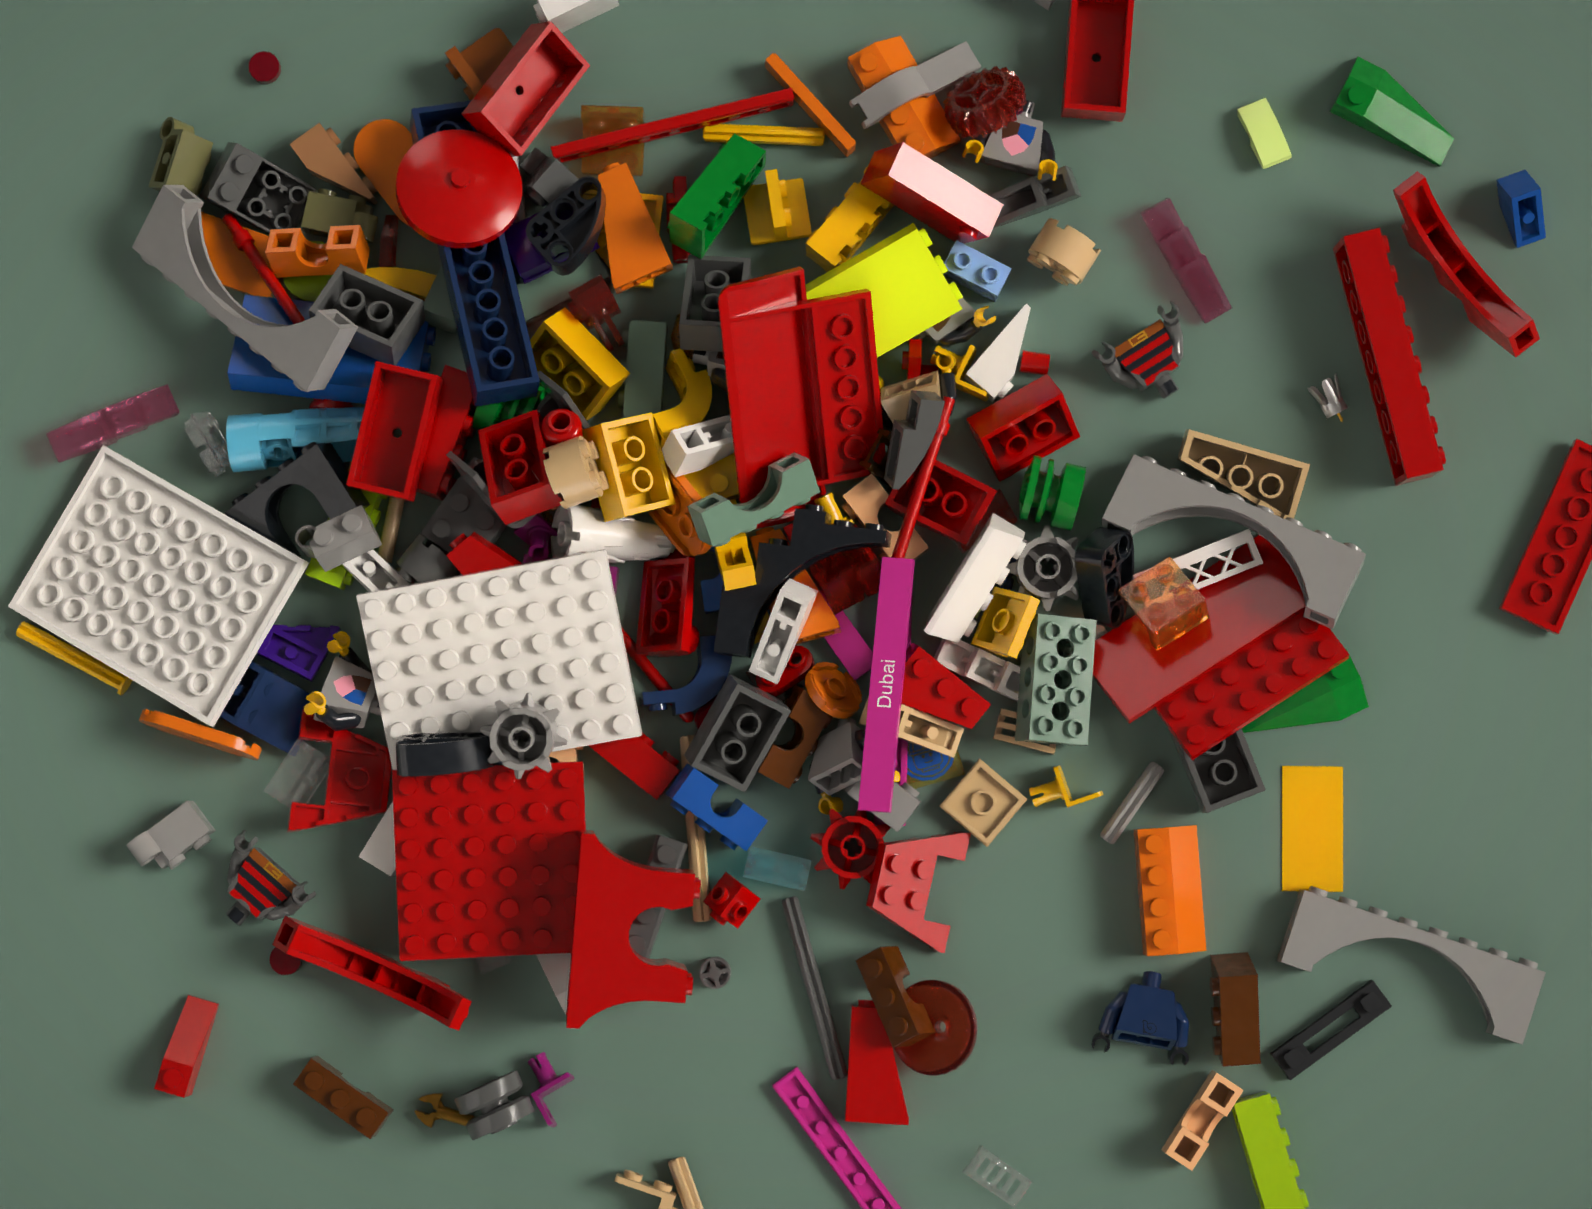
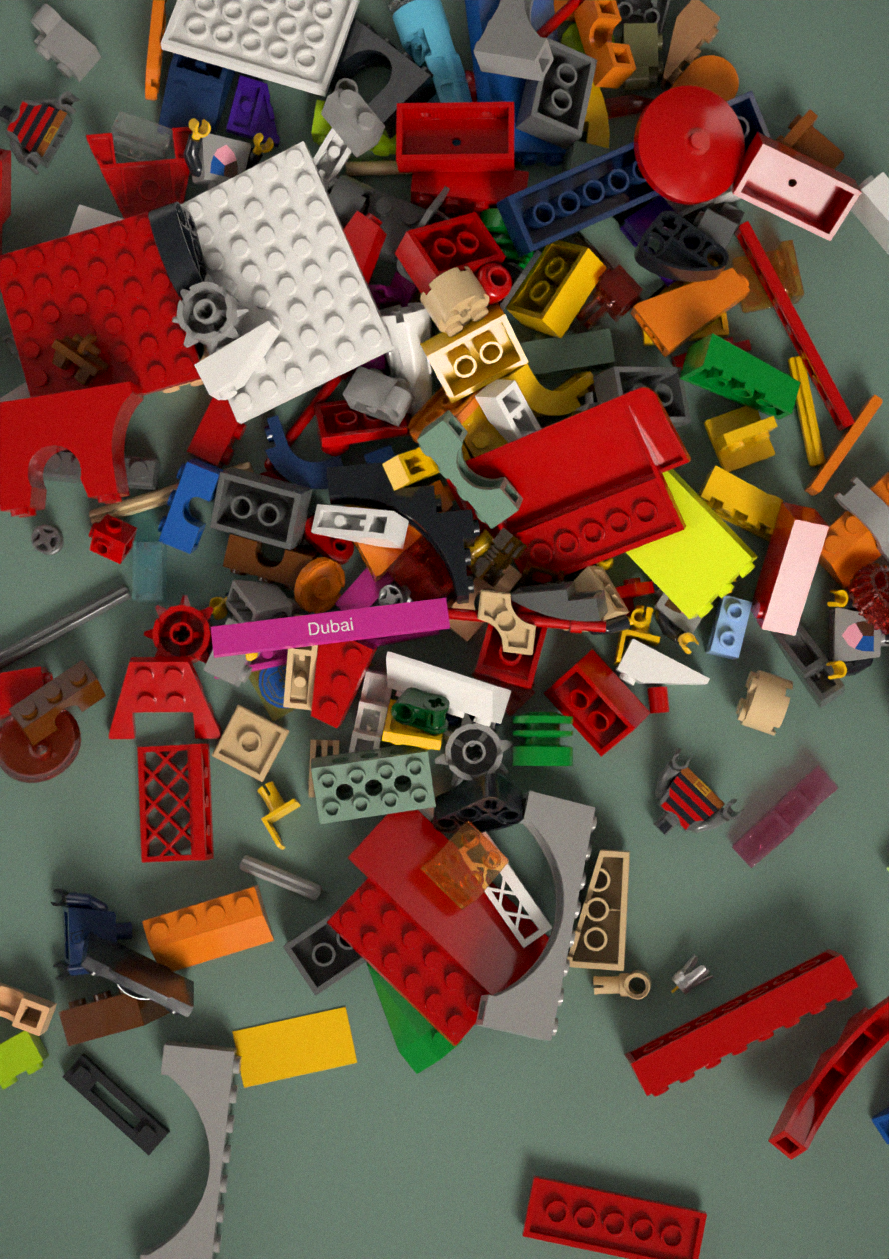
camera: 70 degrees right, 0 degrees up
(531, 883) = (81, 352): none -> reddish brown hips
(582, 722) = (234, 364): none -> white slope
(647, 578) = (379, 395): none -> light grey hinge
(841, 481) = (493, 573): none -> dark brown piece
(864, 620) = (391, 593): none -> flat silver wheel
(907, 506) = (515, 633): none -> tan tile
(993, 611) = (420, 710): none -> dark green piece
(1030, 870) = (199, 803): none -> red fence
(1203, 969) = (138, 974): none -> black piece
(1323, 471) = (621, 984): none -> tan pin

